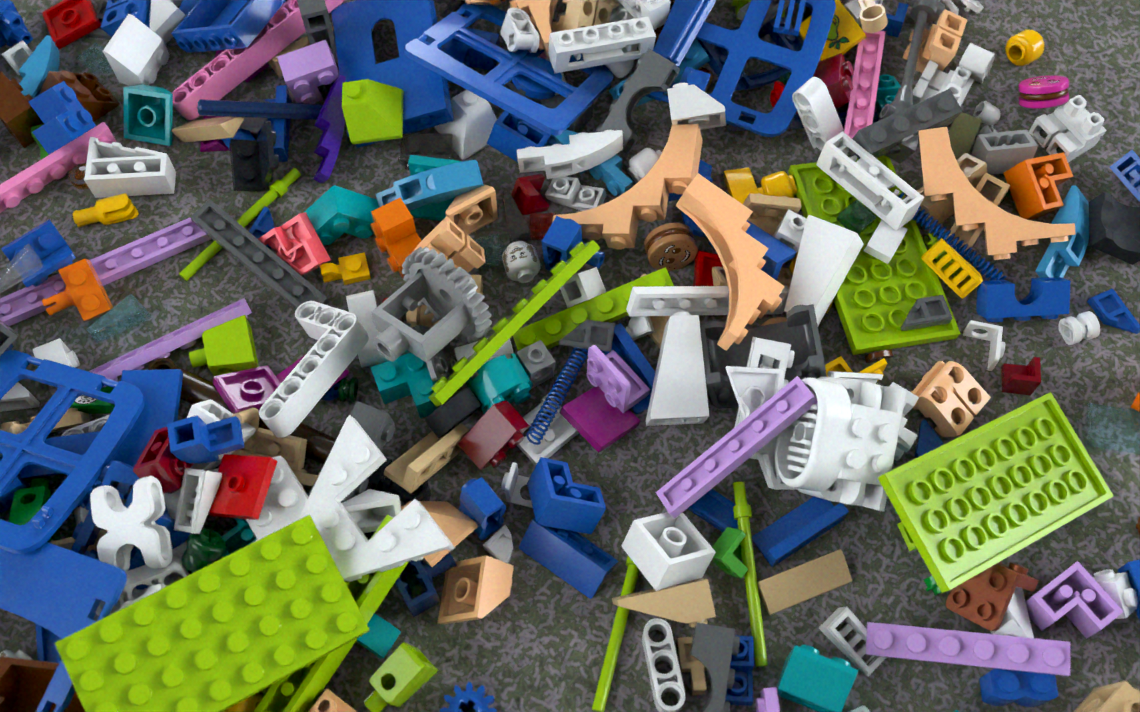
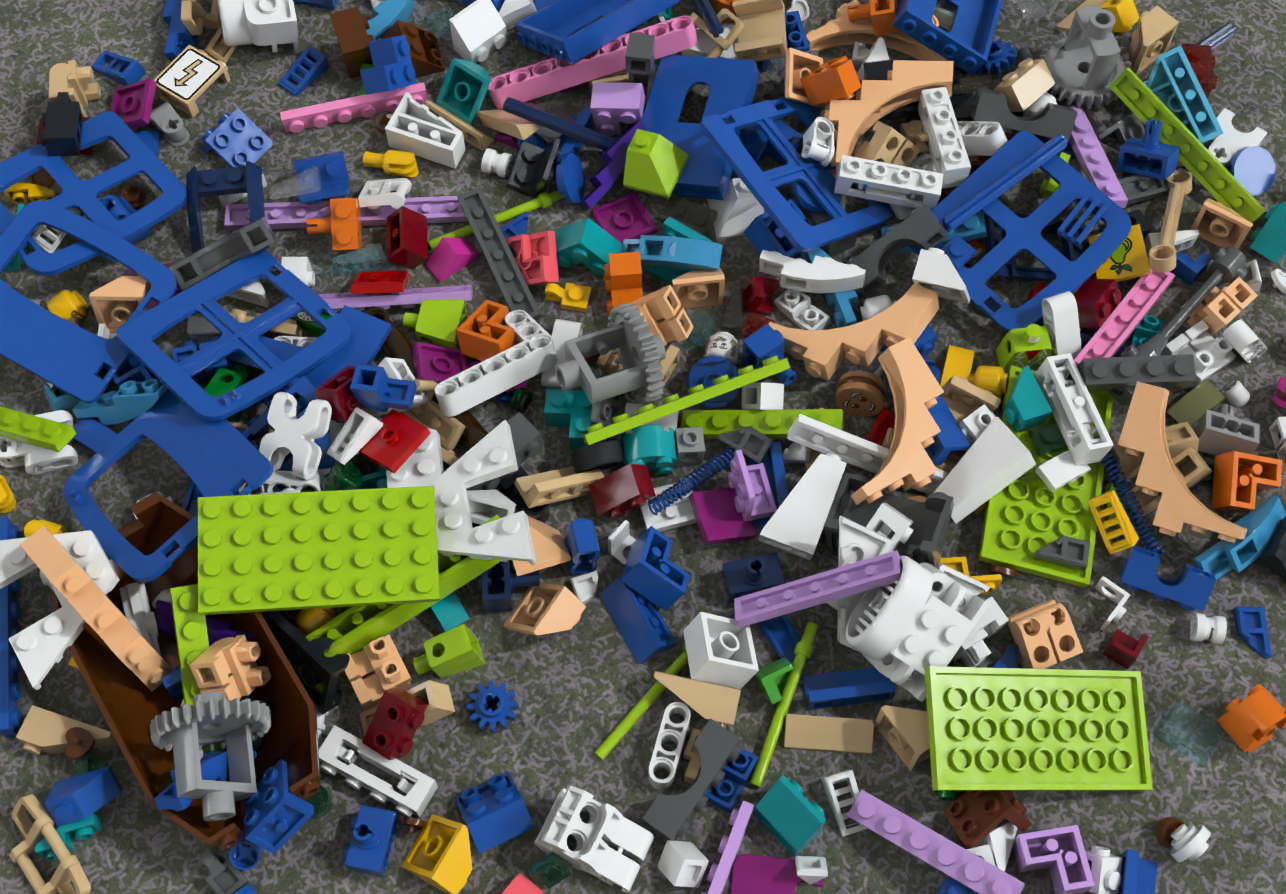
camera: 25 degrees right, 0 degrees up
(106, 246) = (378, 193): none -> white plate
(148, 333) = (380, 282): none -> red plate
(156, 278) = (407, 238): none -> dark red brick
(176, 154) = (470, 133): none -> tan slope
(210, 279) = (451, 256): none -> dark pink slope
(214, 171) = (496, 163): none -> white wheel
(282, 339) = (485, 332): none -> orange brick
(295, 157) = (570, 178): none -> blue tile
(366, 174) = (624, 218): none -> magenta tile
(519, 285) = (708, 369): none -> blue tile
(658, 463) = (751, 575): none -> dark blue brick
(794, 145) = (1024, 347): none -> lime torso
(823, 191) = (1026, 402): none -> teal slope
(881, 547) = (906, 733): none -> tan slope

